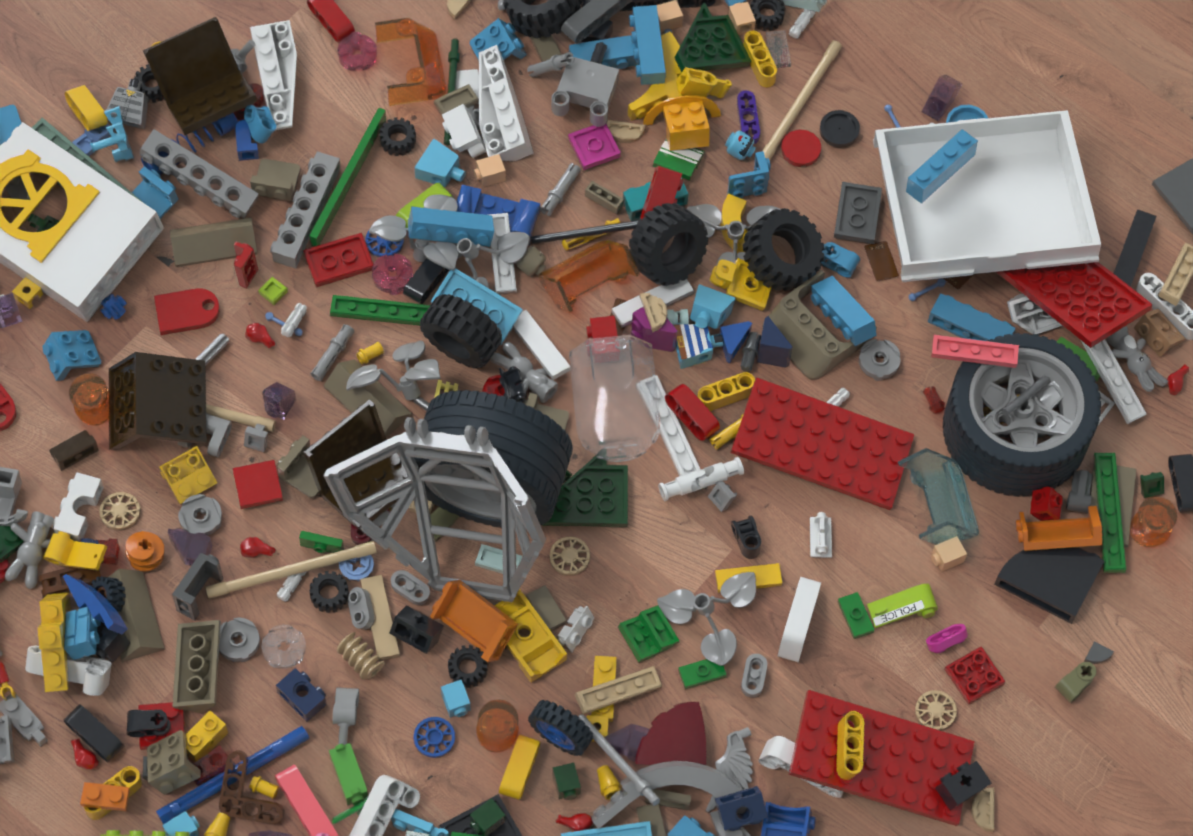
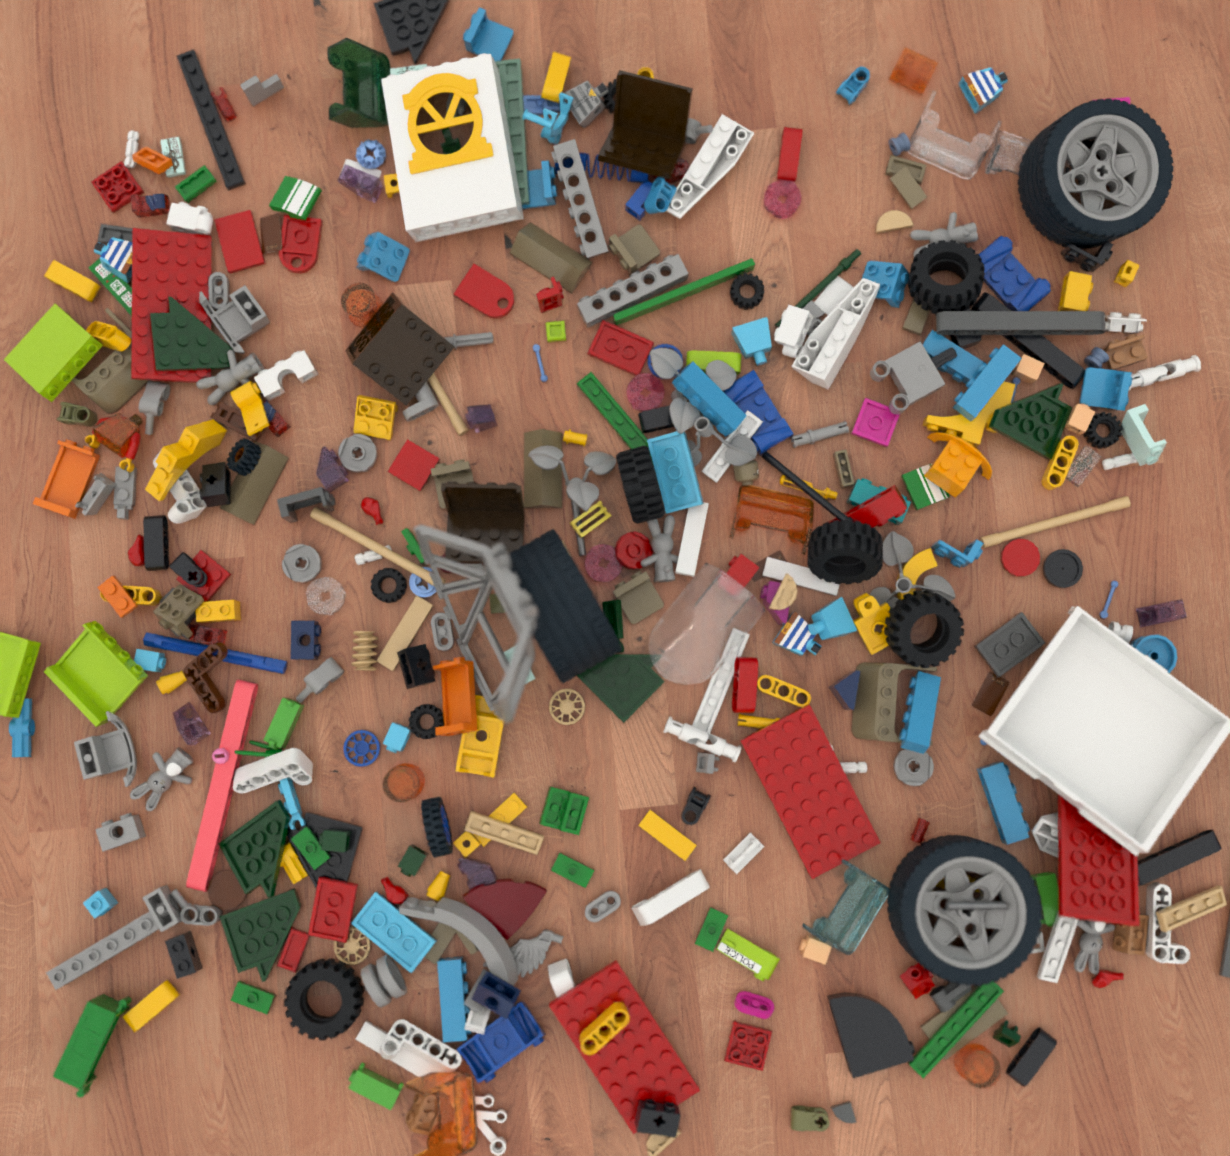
camera: 50 degrees right, 20 degrees up
(74, 450) = (322, 329): dark brown panel -> none
(80, 633) = (199, 471): dark azure brick -> none
(97, 604) = (226, 459): blue slope -> none
(113, 306) = (438, 247): blue gear -> none
(119, 511) = (312, 400): tan wheel -> none
(144, 551) = (300, 455): orange piece -> none
(196, 666) = (256, 558): dark tan slope -> none
(256, 438) = (443, 431): light grey tile -> none
(258, 333) = (515, 355): red animal -> none
(259, 785) = (225, 679): yellow pin -> none
(293, 320) = (547, 367): white axle -> none
(336, 346) = (550, 414): light grey pin -> none
(360, 605) = (397, 616): light grey plate -> none
(424, 81) = (811, 267): clear orange windscreen -> none
(463, 95) = (812, 301): dark tan tile -> none
(490, 170) = (784, 376): light nougat brick -> none
(511, 383) = (634, 561): black hinge -> none
(519, 767) = (393, 821): yellow beam -> none
(546, 607) = (516, 730): dark tan tile -> none
(555, 63) = (905, 338): light grey pin -> none
(580, 620) = (511, 764): white hinge -> none
(624, 131) = (908, 430): tan tile -> none
(641, 786) = (442, 924): light grey bar -> none
(673, 316) = (798, 605): light aqua wheel -> none
(681, 603) = (600, 812): light grey plant -> none
(701, 83) = (995, 446): yellow piece -> none
(734, 338) = (827, 656): blue slope -> none
(740, 145) = (977, 517): medium azure head -> none
(750, 351) = (829, 677): dark grey axle -> none
(752, 110) = (1001, 514): dark purple beam -> none
(840, 259) = (960, 670): dark azure piece -> none
(936, 709) = (697, 1043): tan wheel -> none
(941, 166) = (1093, 683): dark azure brick -> none
(975, 351) = (969, 846): coral plate -> none
(1060, 533) = (905, 1012): orange panel -> none

